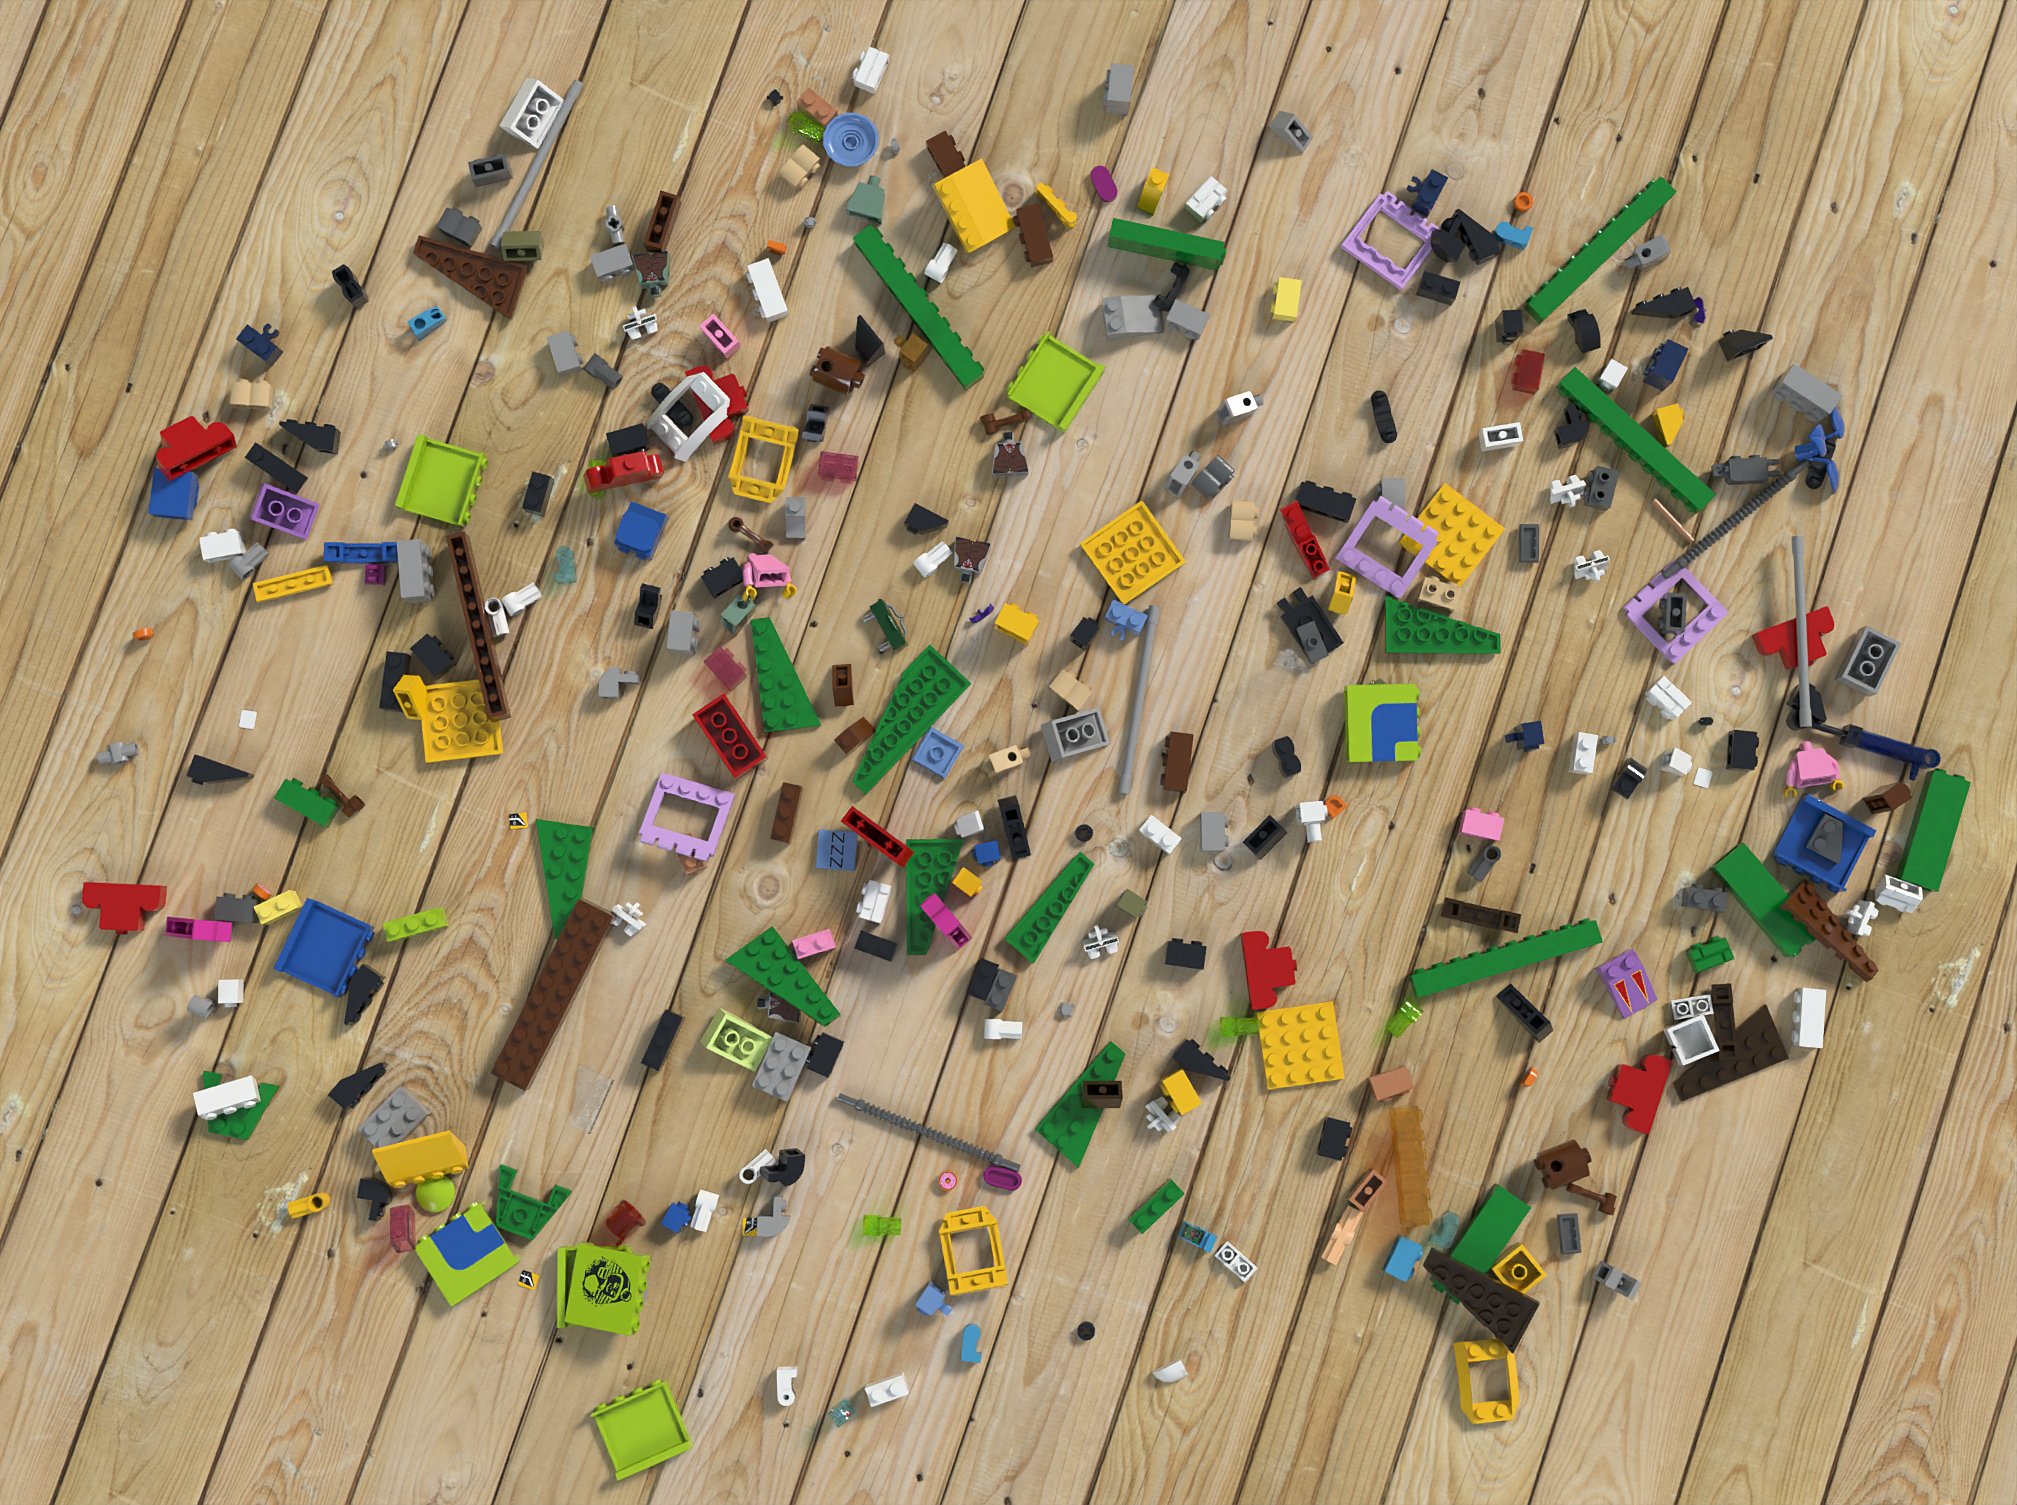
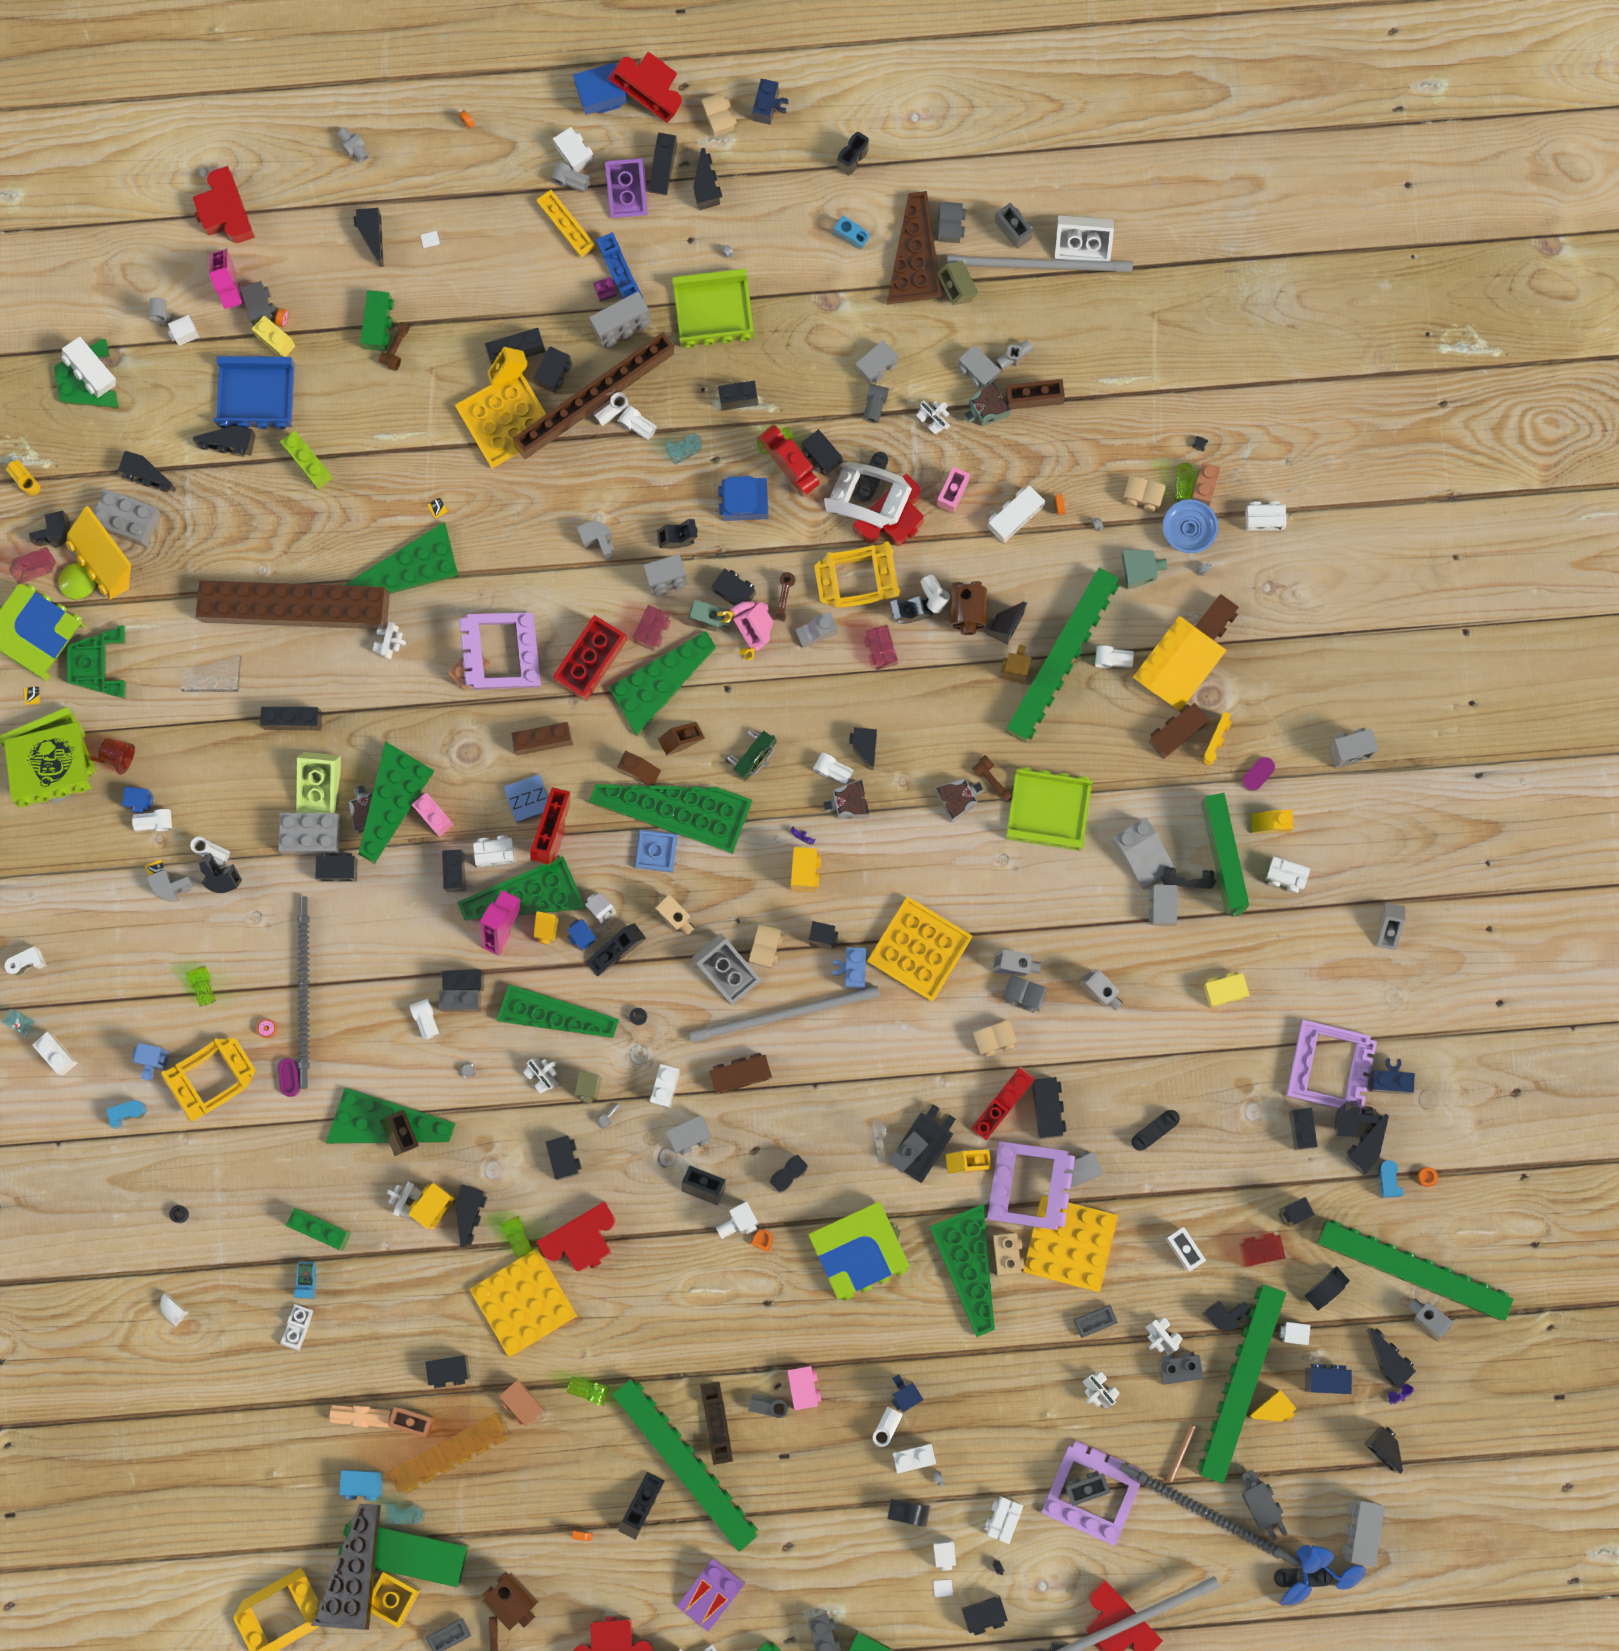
camera: 75 degrees right, 5 degrees down
(815, 394) = (936, 595): none -> white piece
(1167, 904) = (603, 1120): none -> light grey hand
(1544, 764) = (887, 1425): none -> white piece

